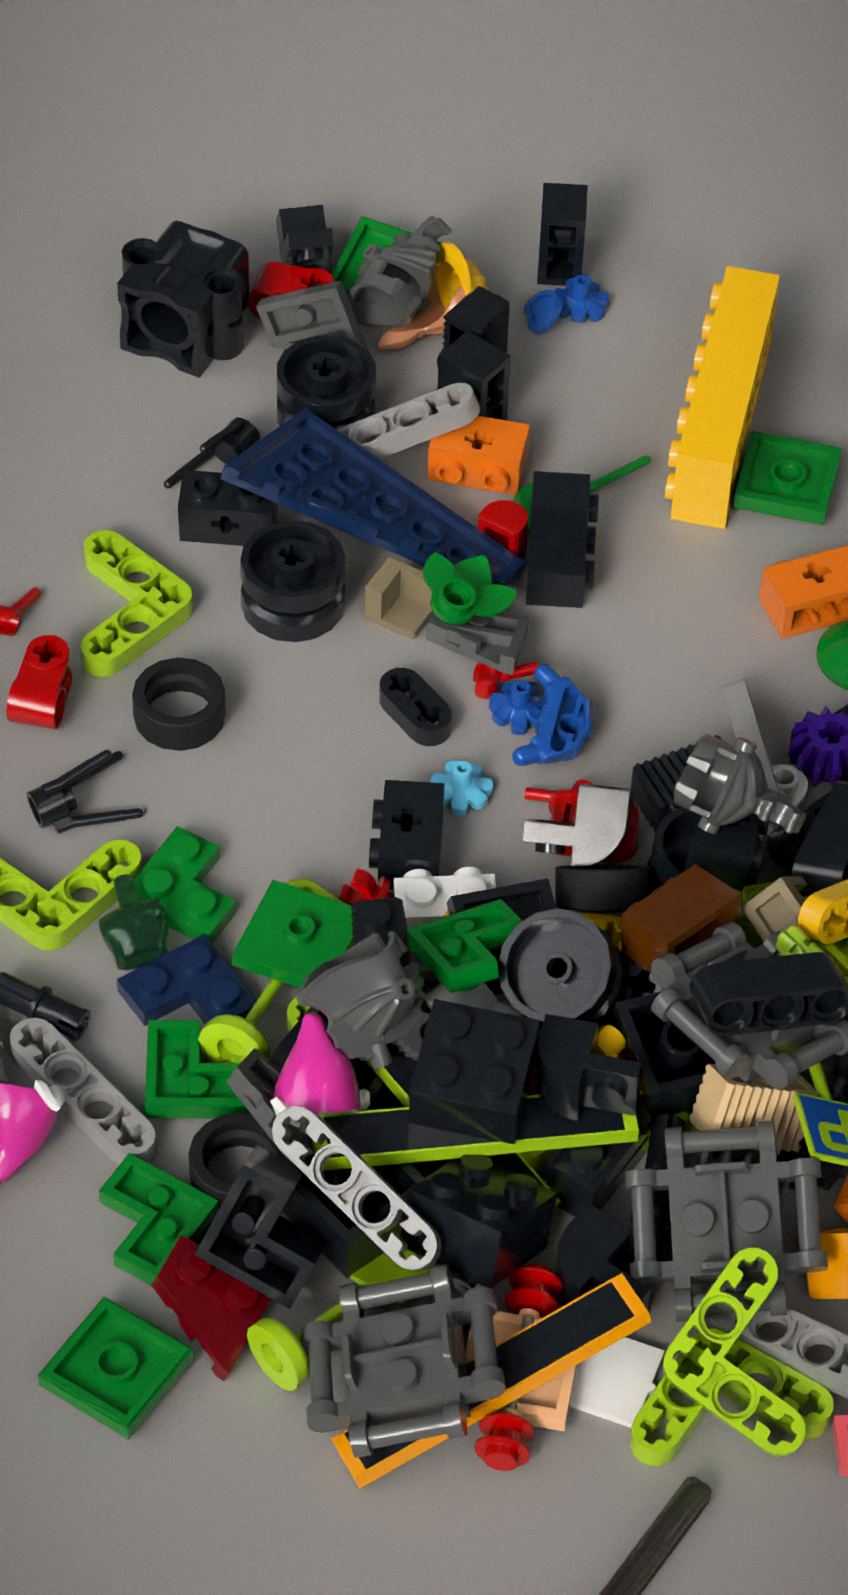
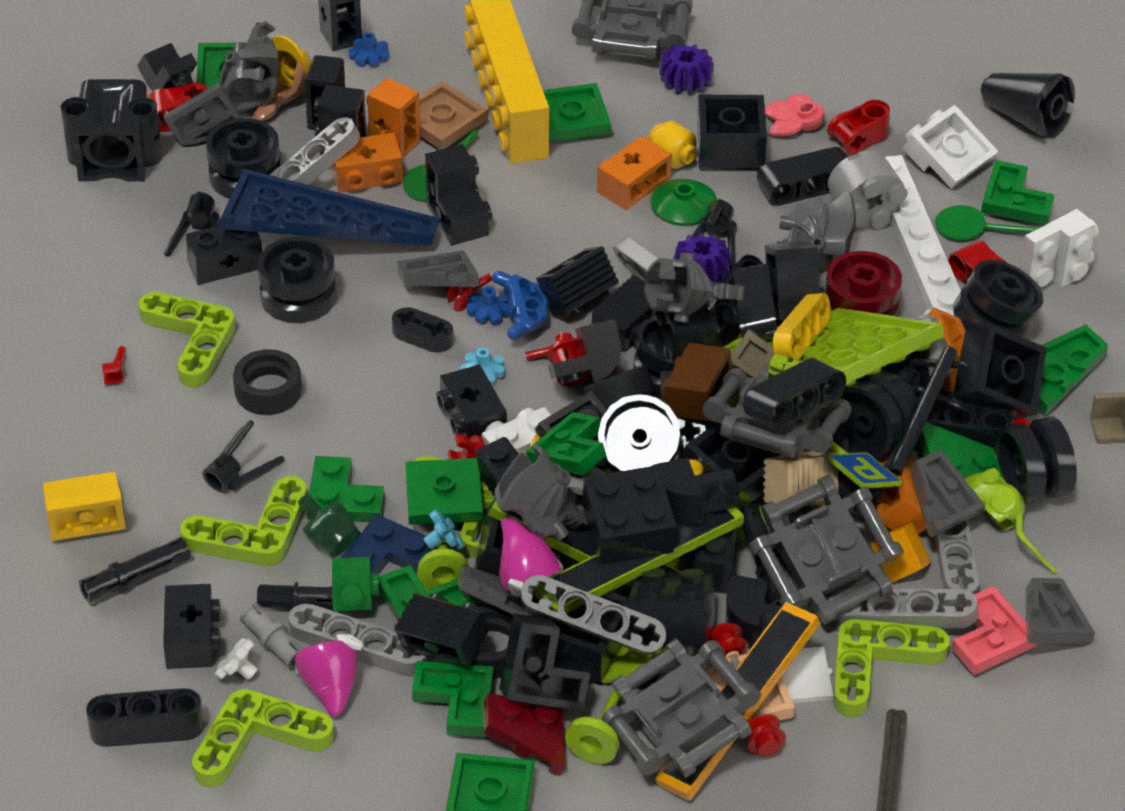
camera: 25 degrees left, 5 degrees down
(41, 684) = (168, 401): red piece -> none
(111, 1017) = (353, 584): none -> green brick
(173, 1124) = (442, 628): none -> black brick
(263, 993) = (443, 532): none -> medium azure plant
(398, 598) = (373, 266): dark tan panel -> none
(464, 589) = (415, 244): green plate -> none
(506, 524) = (414, 197): red brick -> none
(543, 310) = (353, 64): blue piece -> none
(546, 398) = (396, 110): none -> orange brick
(615, 421) = (448, 115): none -> medium nougat plate
(644, 717) = (577, 281): none -> black brick
(720, 1371) = (871, 637): lime beam -> none

